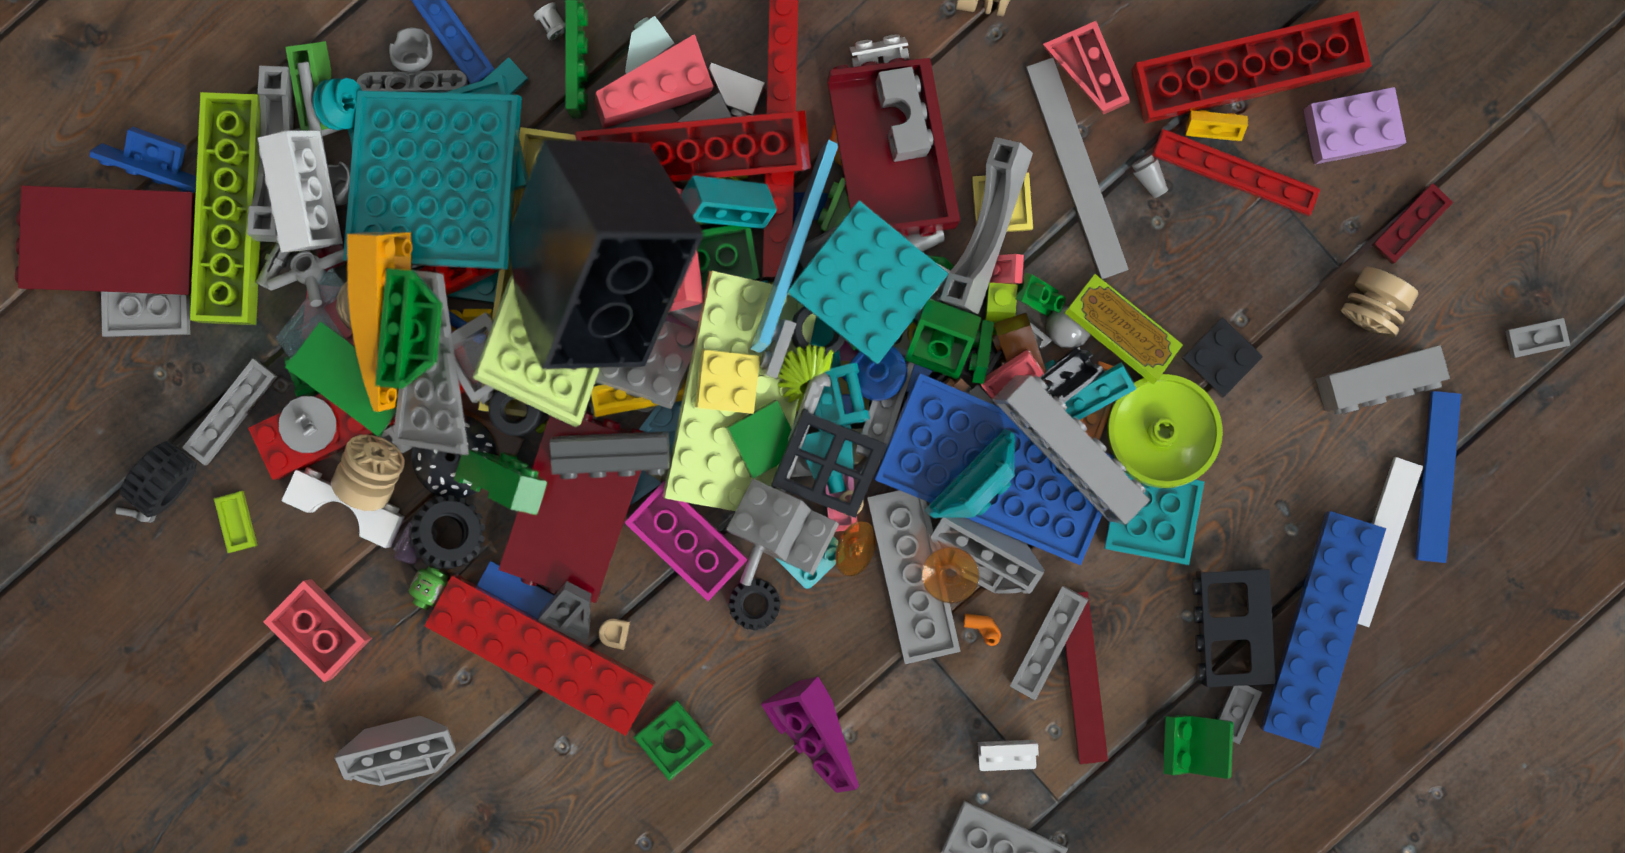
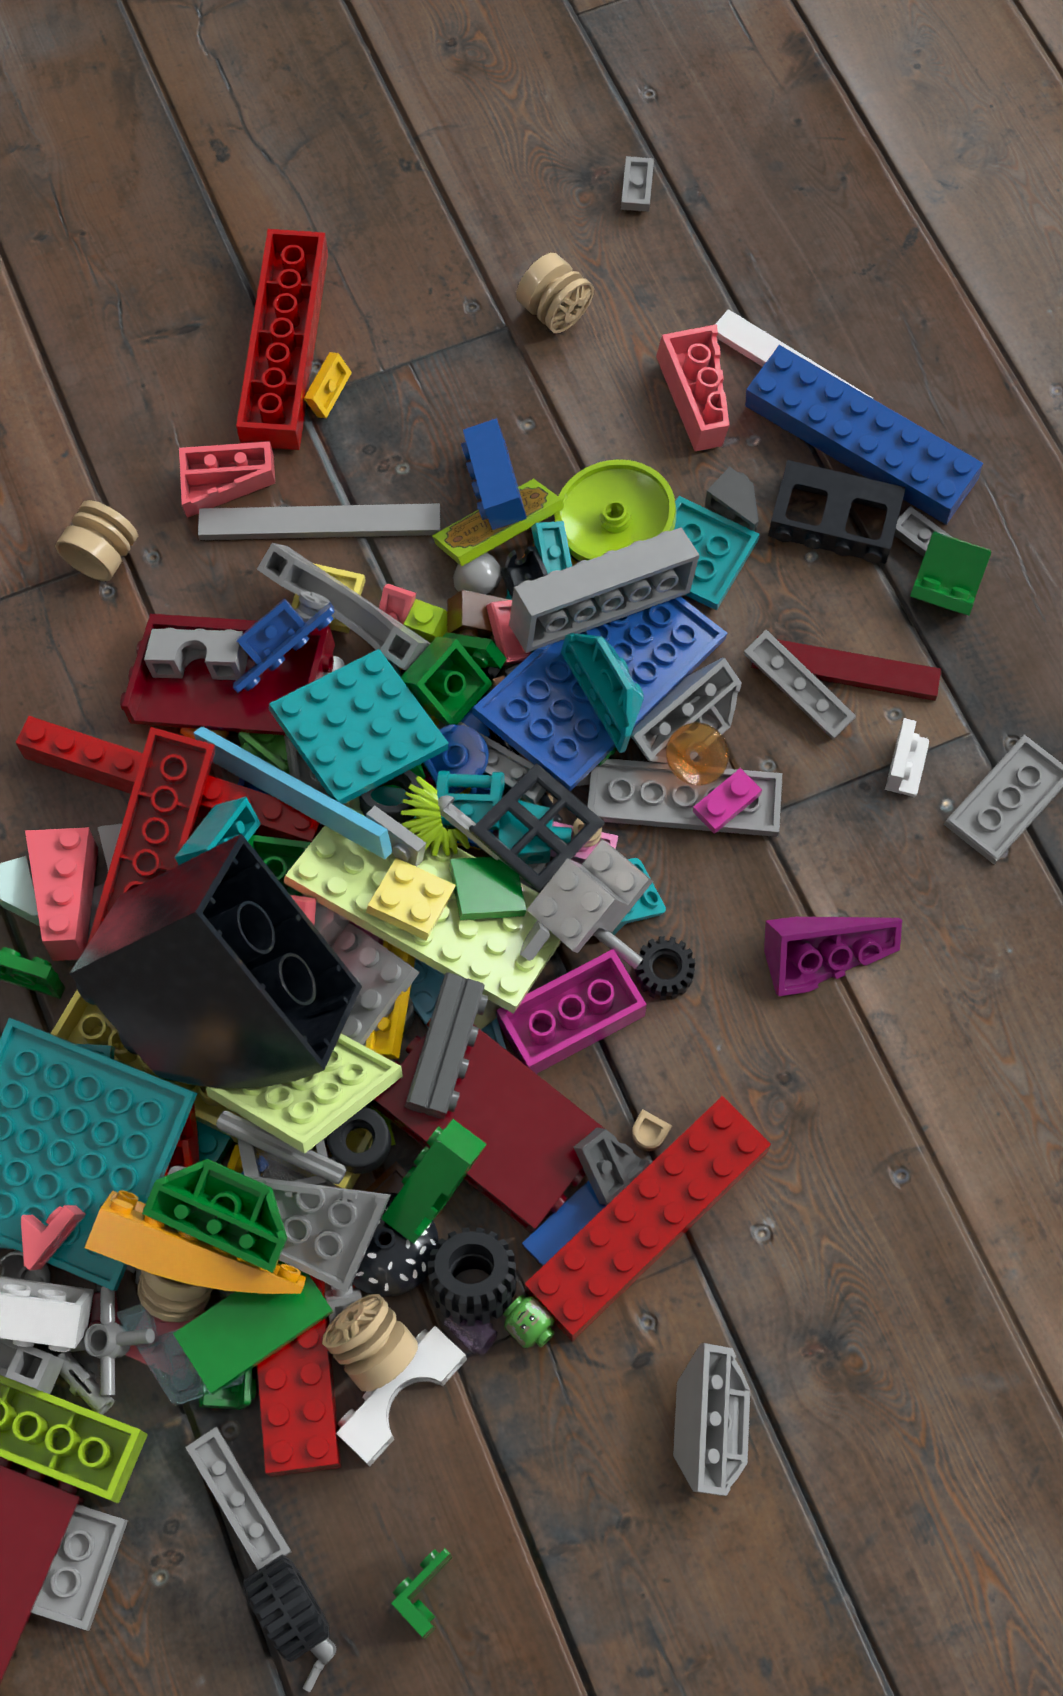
camera: 70 degrees left, 20 degrees down
(190, 569) = (418, 1614): none -> green bracket
(235, 522) = (372, 1539): lime tile -> none
(307, 424) = (288, 1394): light grey piece -> none
(317, 630) = (536, 1471): coral brick -> none
(360, 191) = (42, 1241): none -> coral slope
(485, 320) = (264, 1140): none -> light grey axle
(673, 760) = (801, 1082): green piece -> none
(726, 494) = (534, 941): none -> light grey tile
(737, 90) = (102, 808): white slope -> none
(855, 548) = (637, 843): clear orange dish -> none
(888, 48) = (125, 655): white hinge -> none
(917, 612) = (727, 800): none -> dark pink plate
(931, 181) = (274, 636): none -> blue bracket
(974, 198) = (310, 604): none -> light grey wheel
(986, 627) = (763, 744): orange arm -> none
(1039, 295) = (435, 584): green hips -> none
(1150, 175) = (352, 457): light grey cone -> none
(1166, 310) = (493, 475): none -> blue brick
(1217, 533) = (734, 499): none -> dark grey slope
(1222, 357) = (559, 449): black plate -> none
(1236, 172) = (379, 386): red tile -> none
(1327, 462) = (696, 383): none -> coral wedge
(1354, 125) = (376, 271): lavender brick -> none
(1389, 377) = (632, 312): light grey brick -> none
(1412, 223) = (489, 252): dark red plate -> none
(1438, 476) = (743, 301): blue tile -> none

